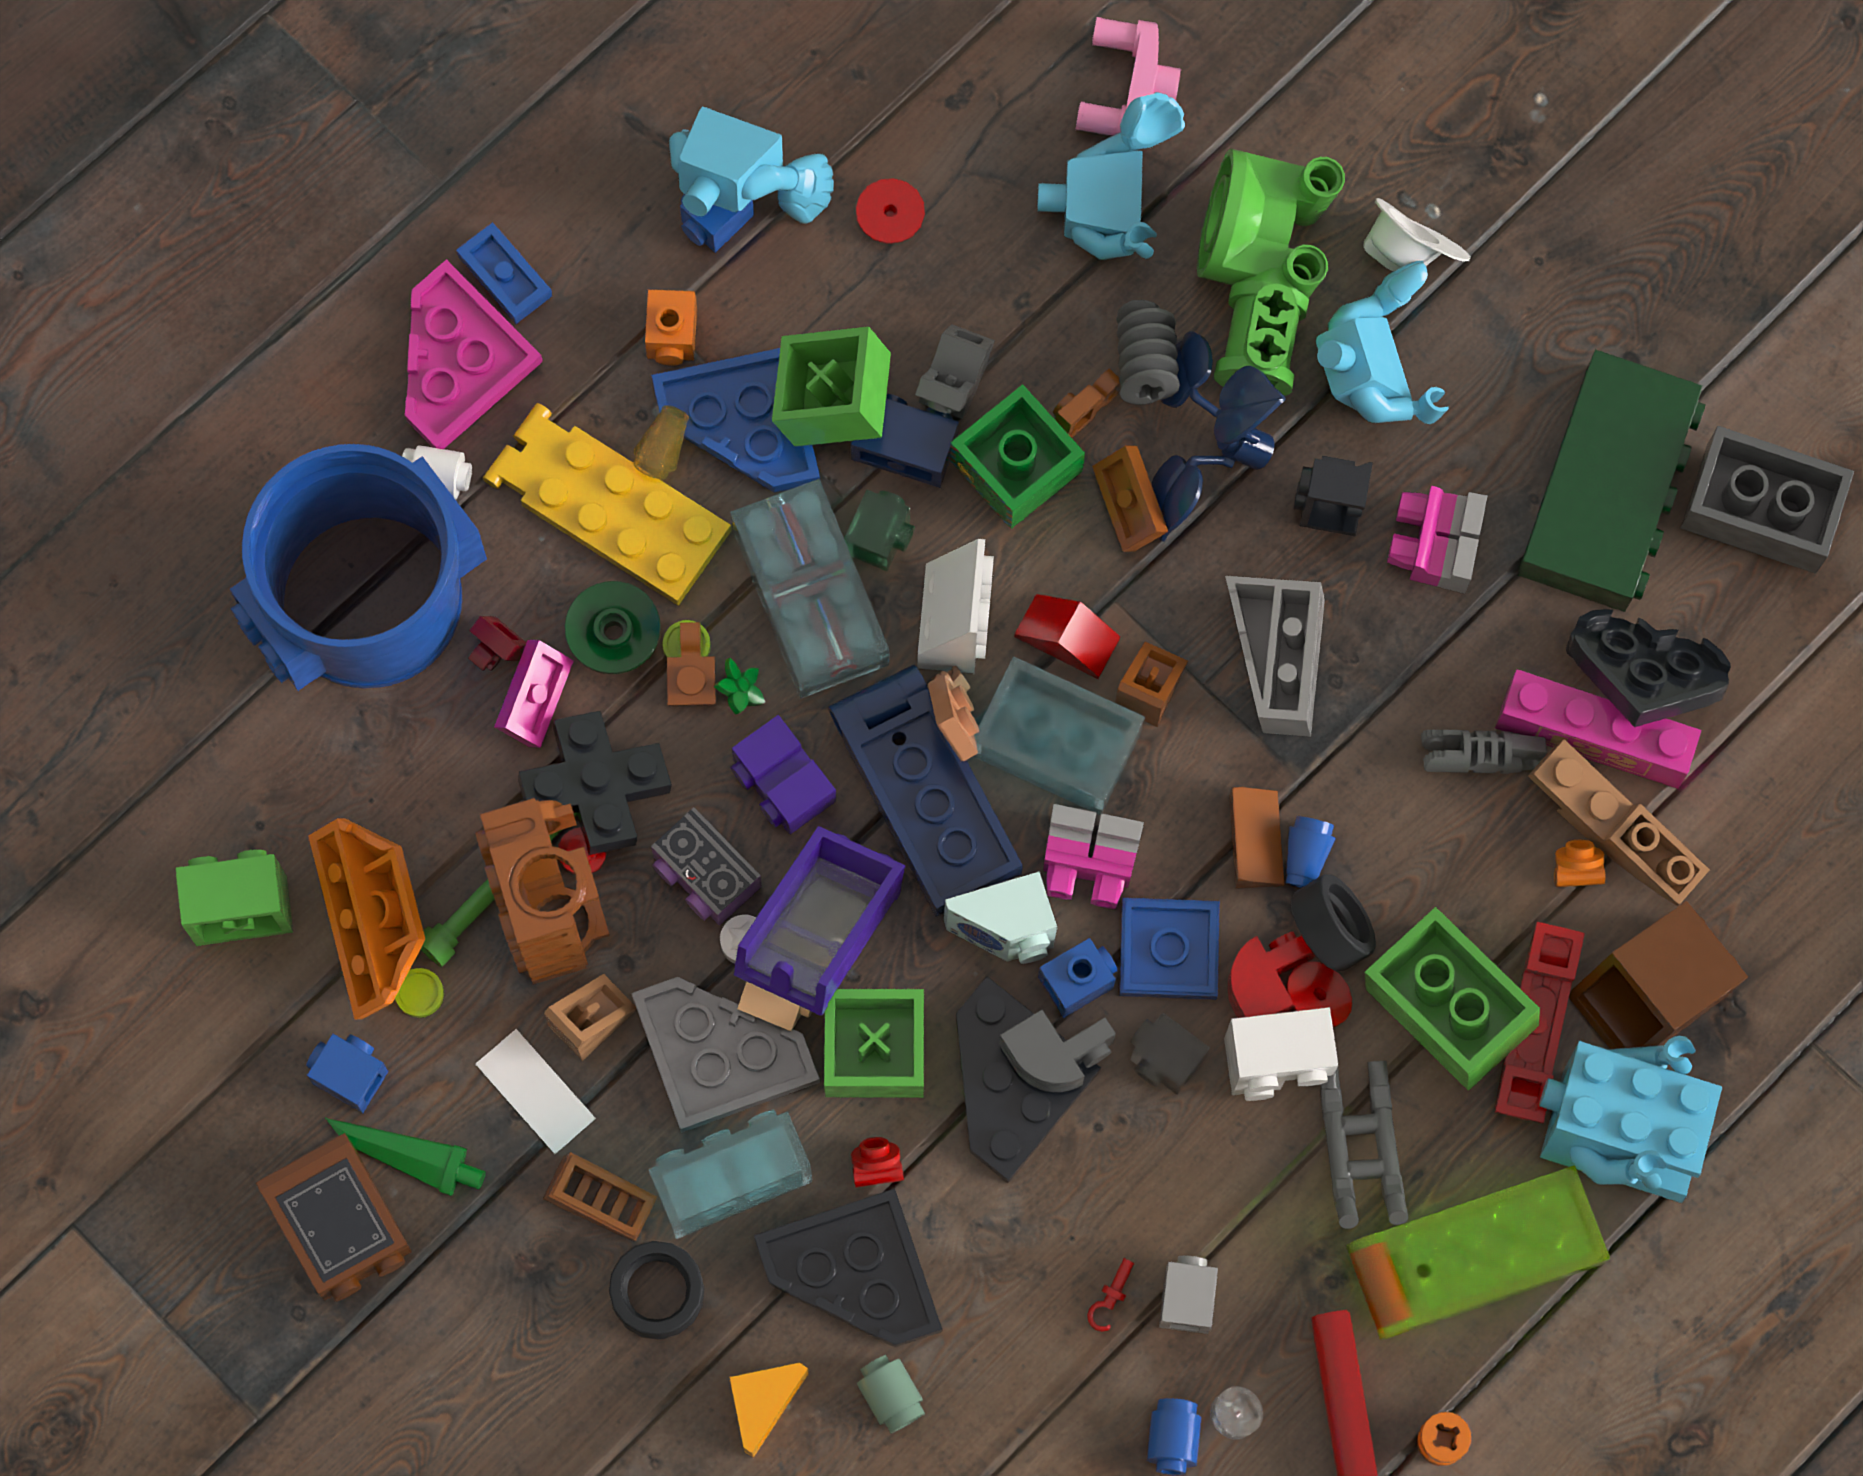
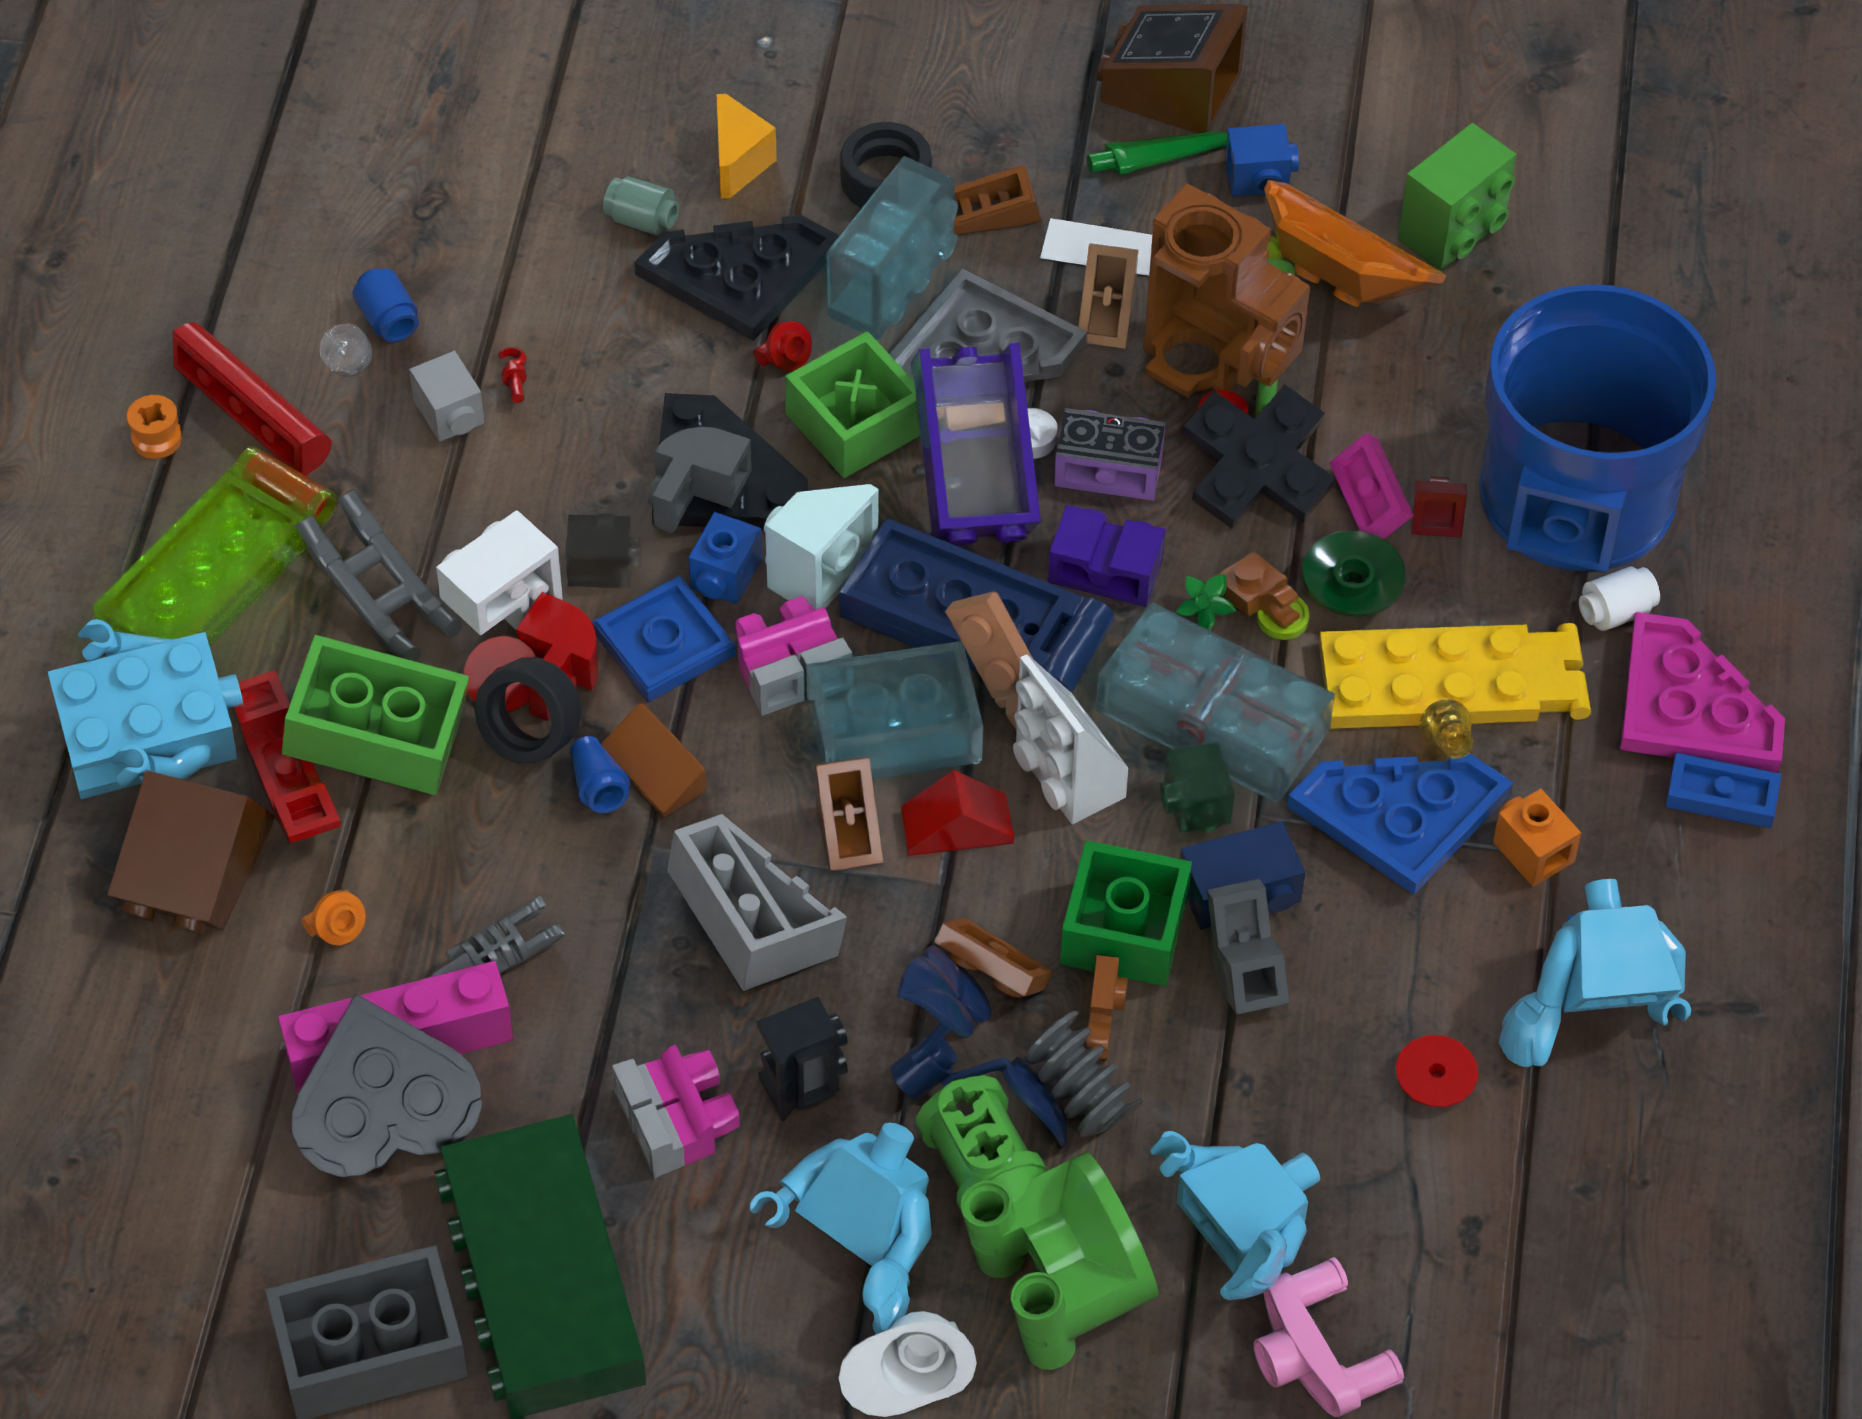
camera: 145 degrees right, 20 degrees down
(831, 386) = (1338, 832): bright green brick -> none
(1617, 826) = (315, 967): medium nougat slope -> none

